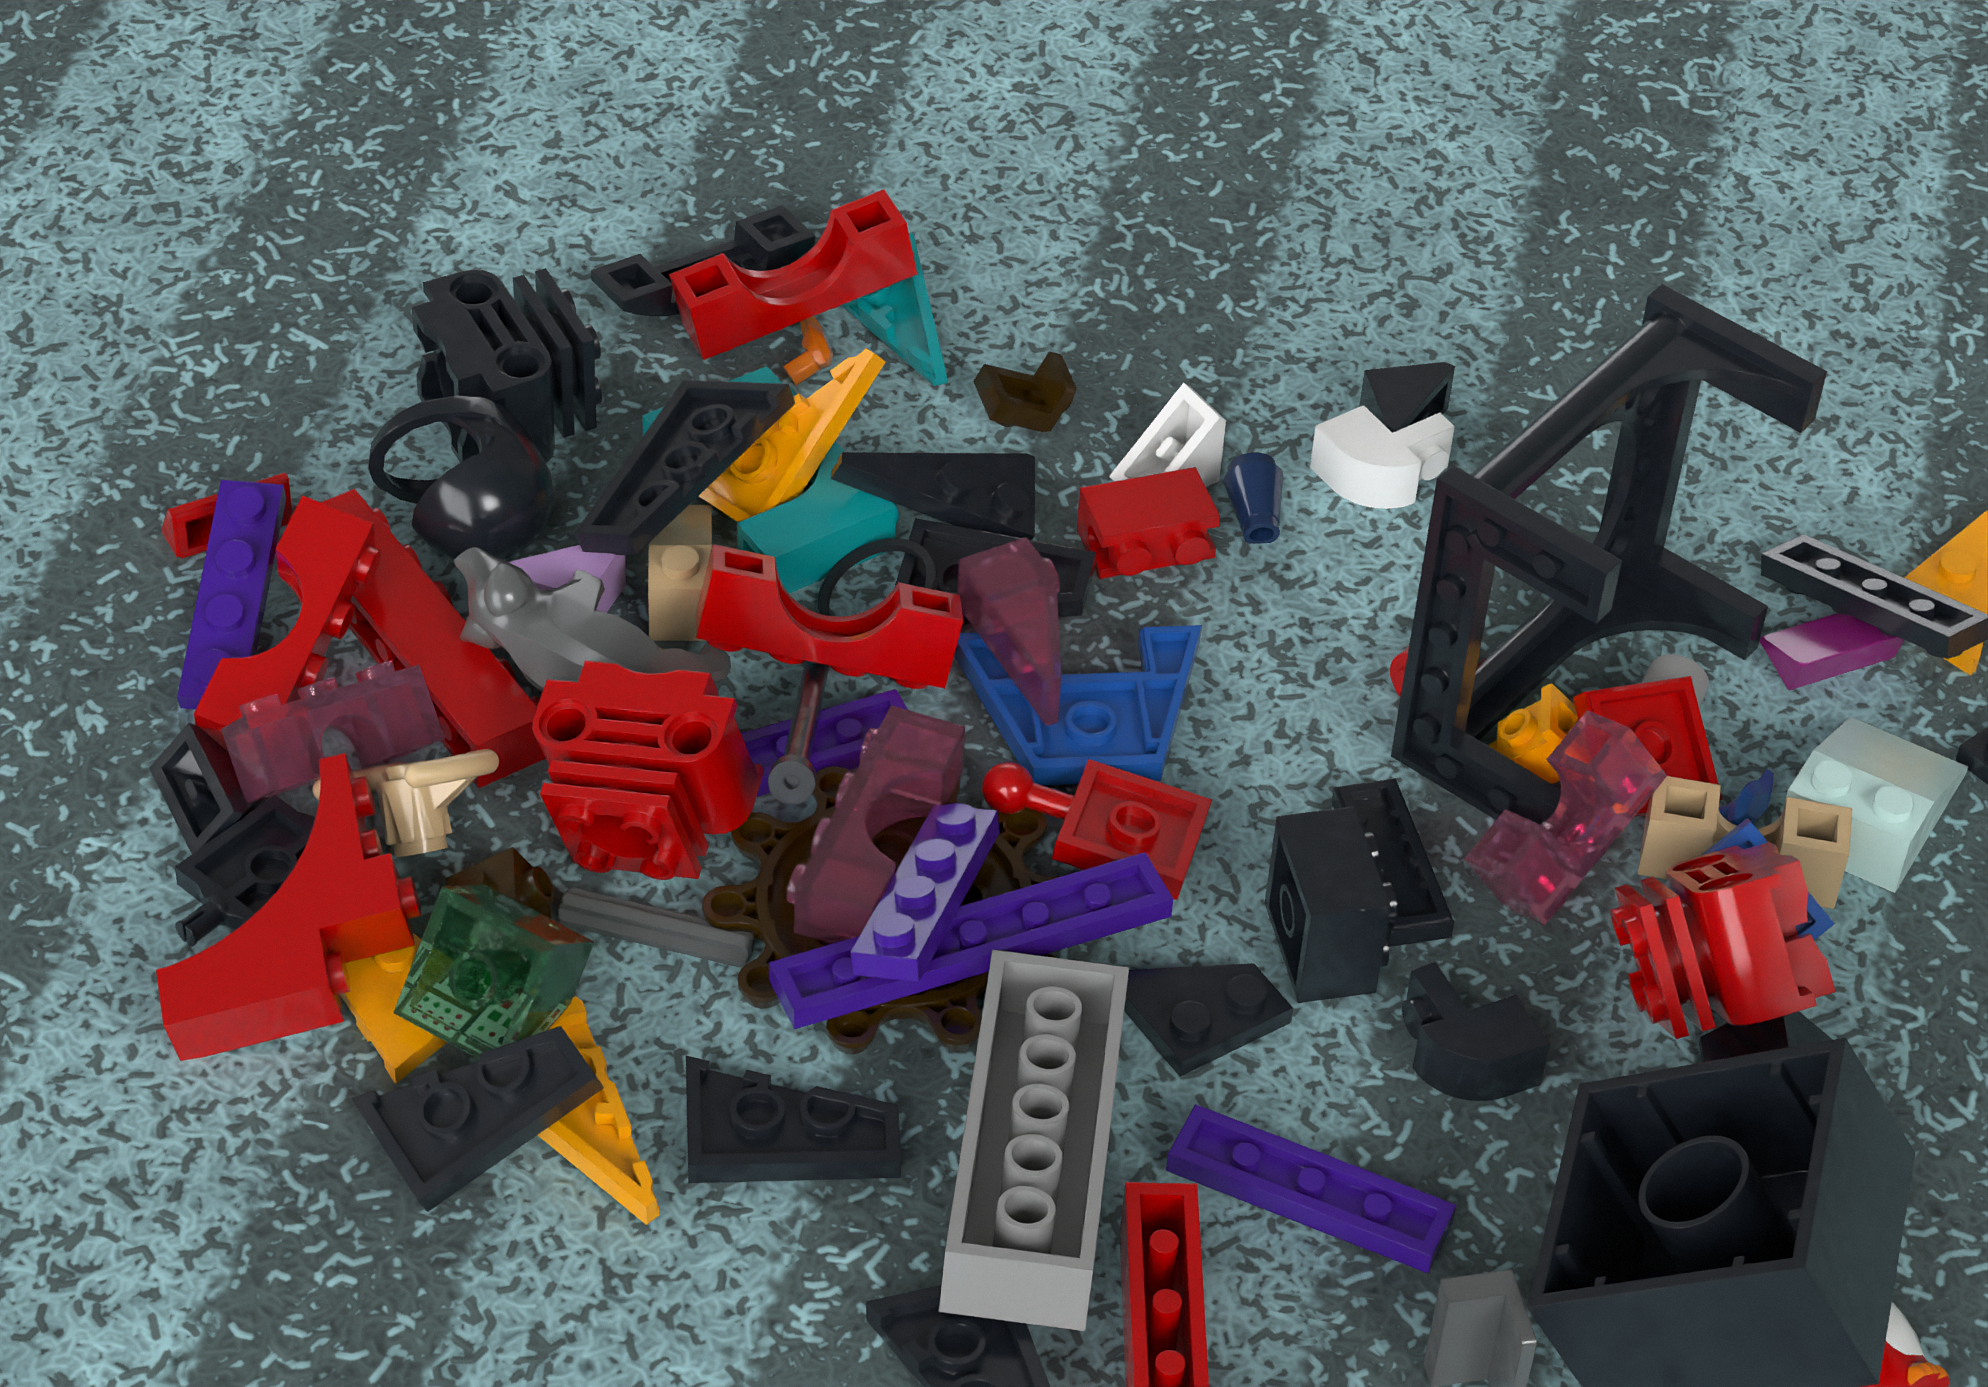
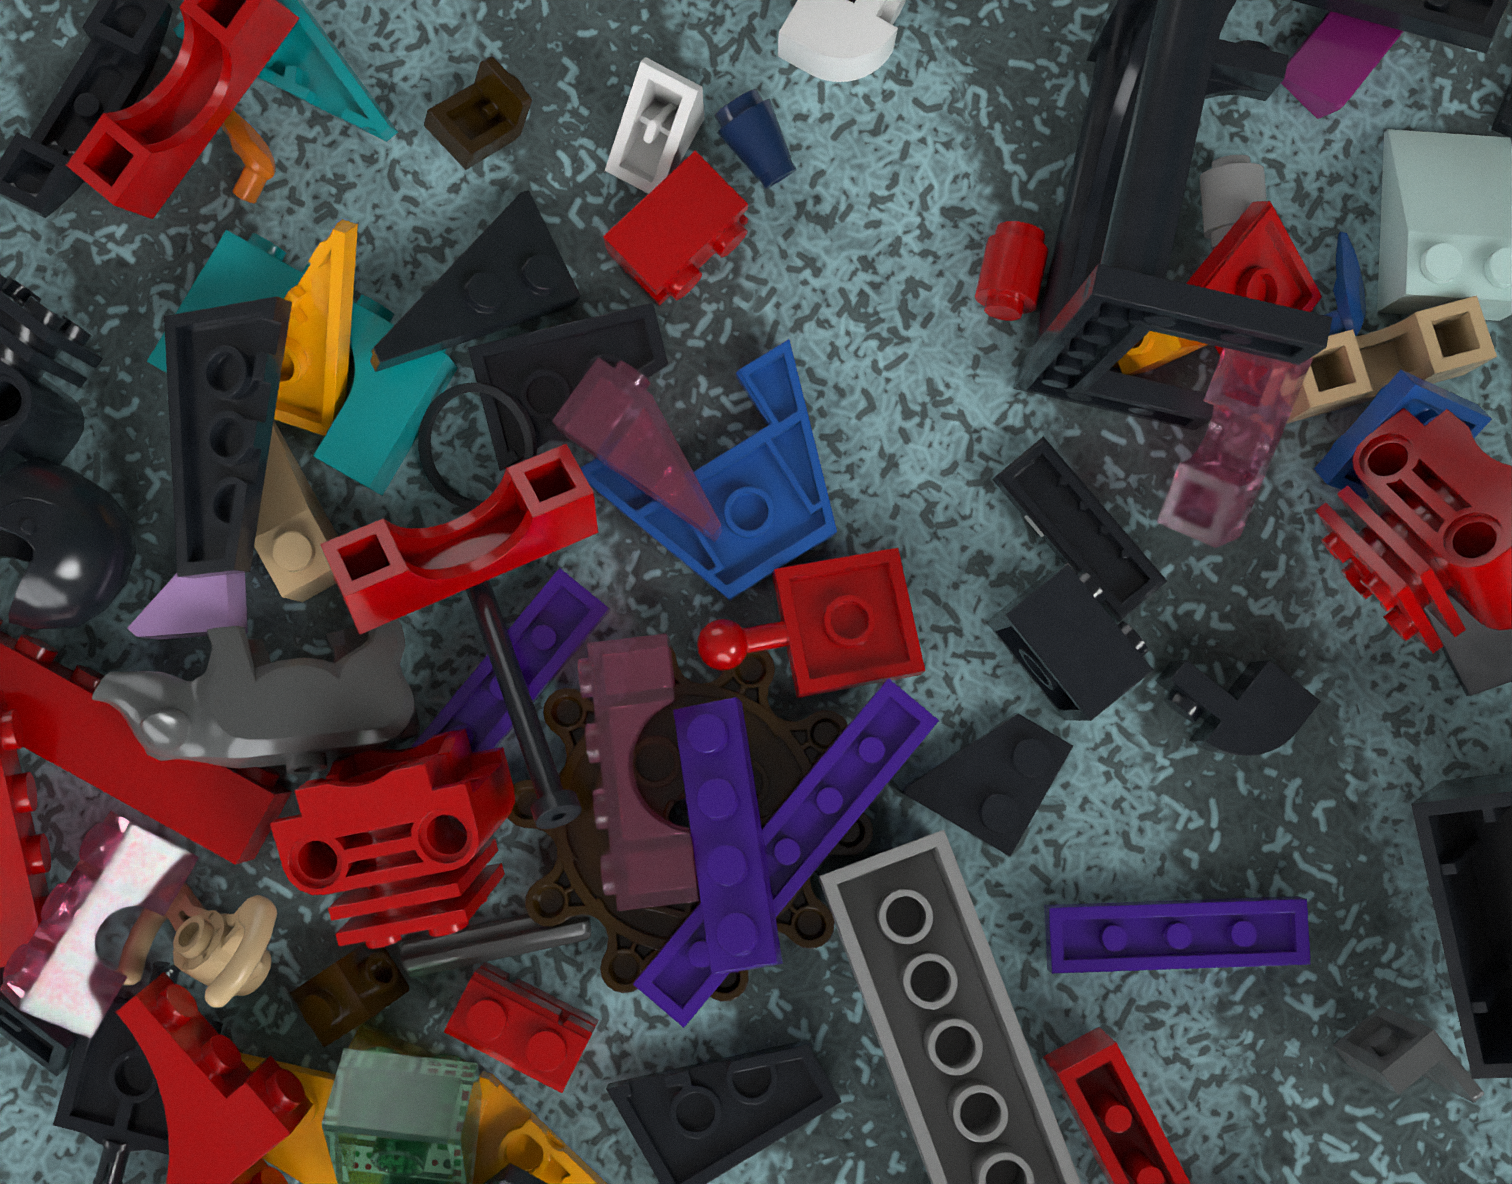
camera: 30 degrees left, 40 degrees up
(643, 978) = (521, 1026): none -> red brick

